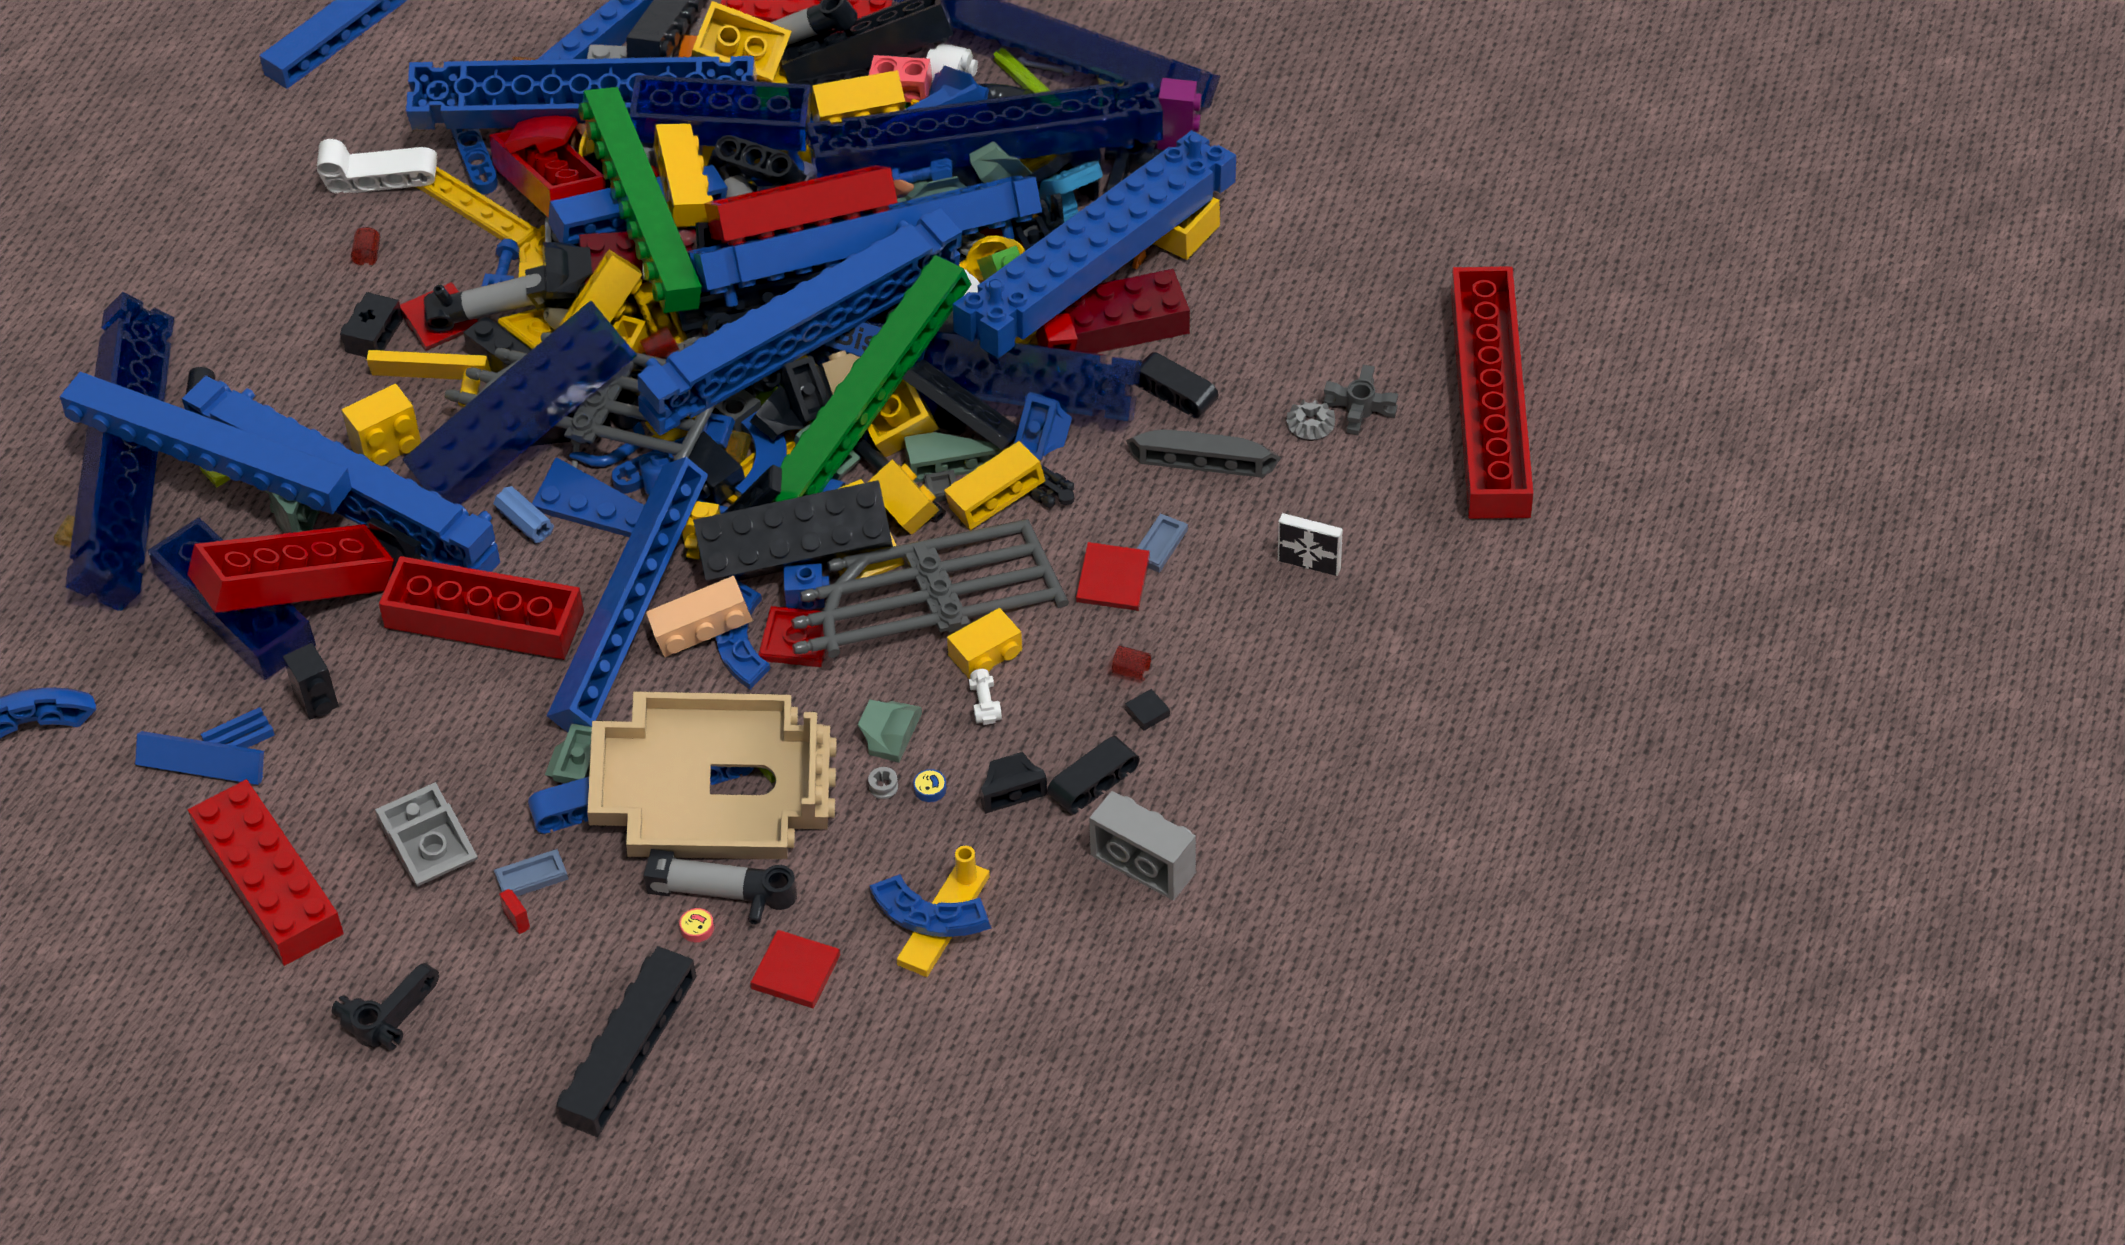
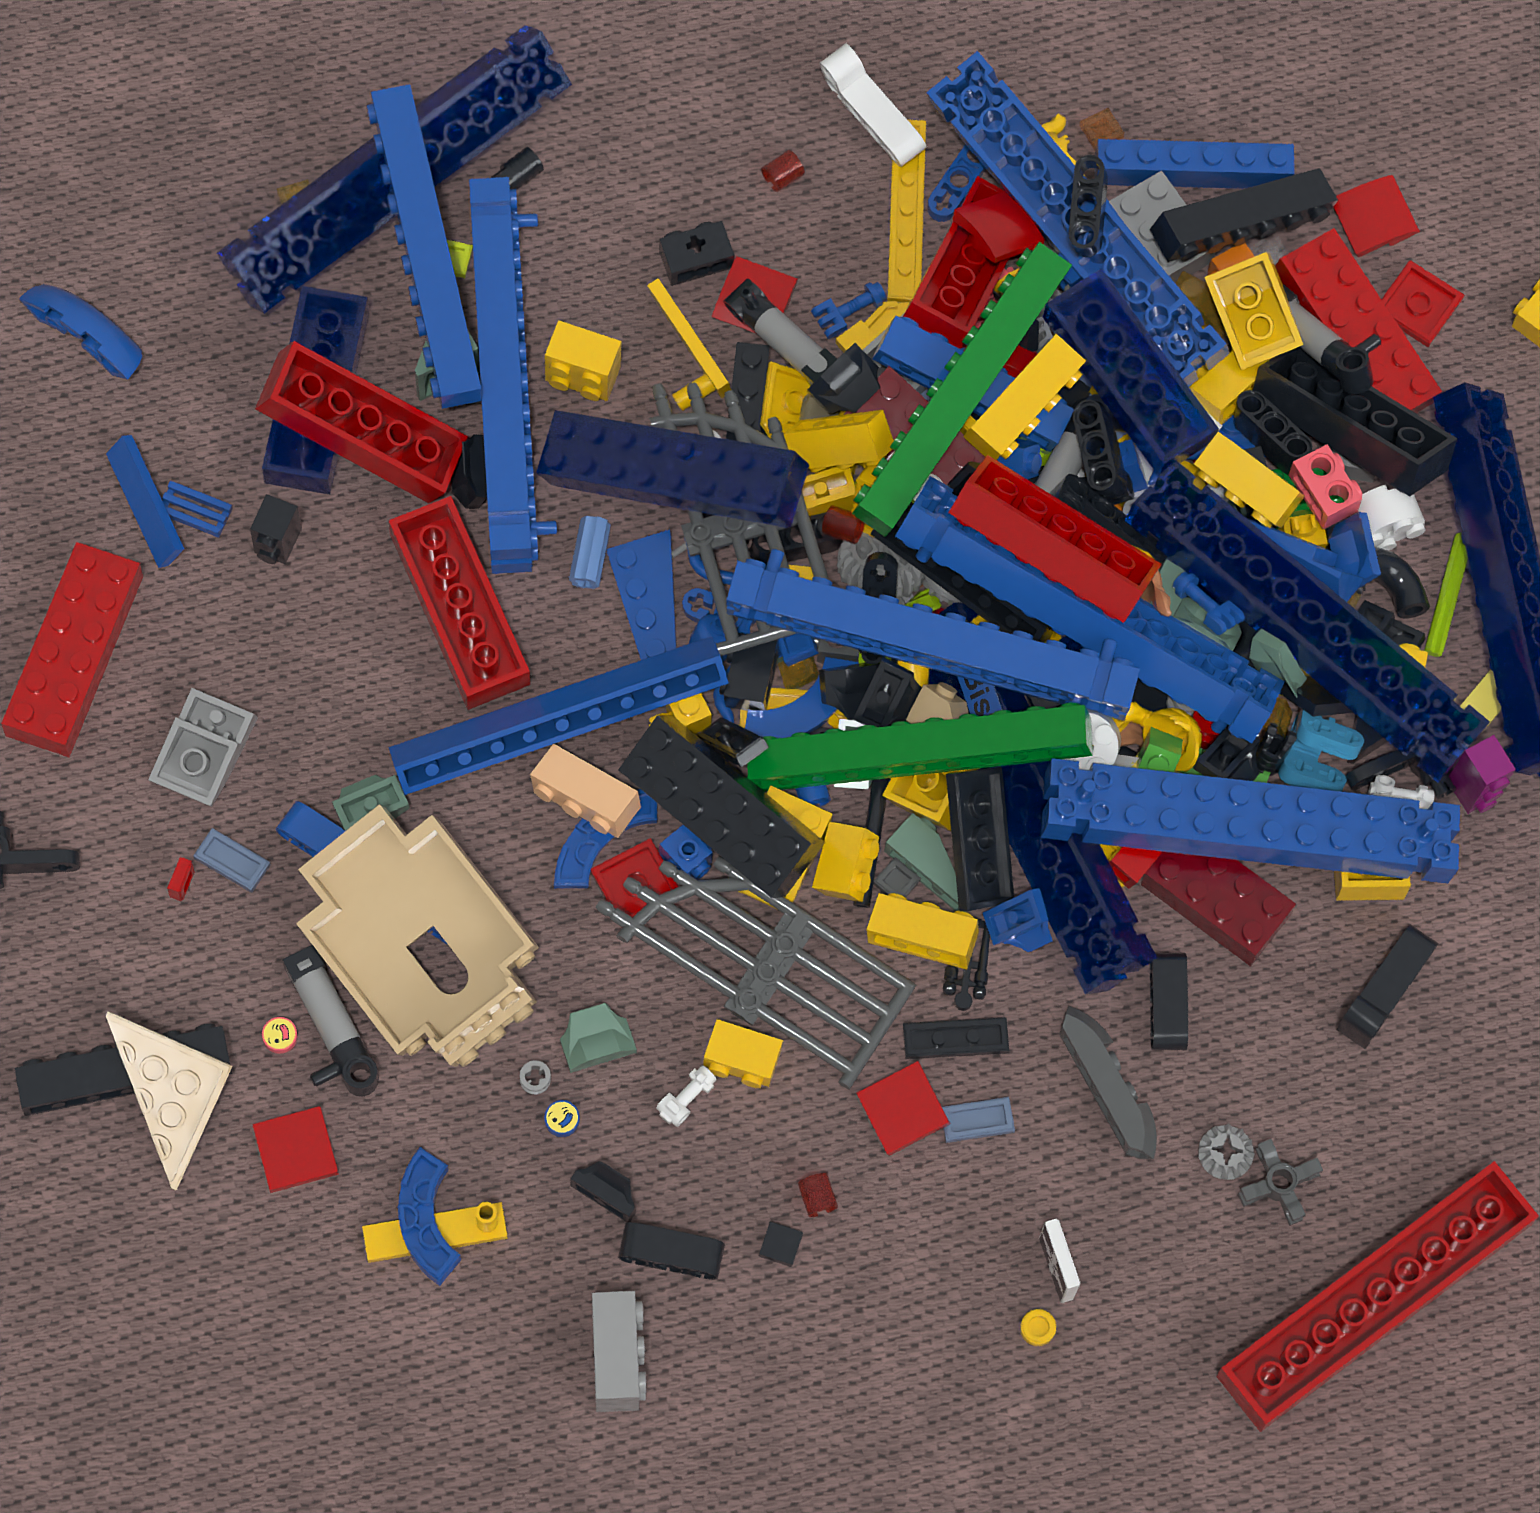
camera: 45 degrees right, 20 degrees up
(577, 53) = (1085, 190): none -> black beam
(677, 1006) = (172, 1087): none -> tile
(1088, 520) = (955, 1038): none -> black tile
(1285, 278) = (1387, 986): none -> black beam
(1344, 597) = (1038, 1327): none -> yellow tile

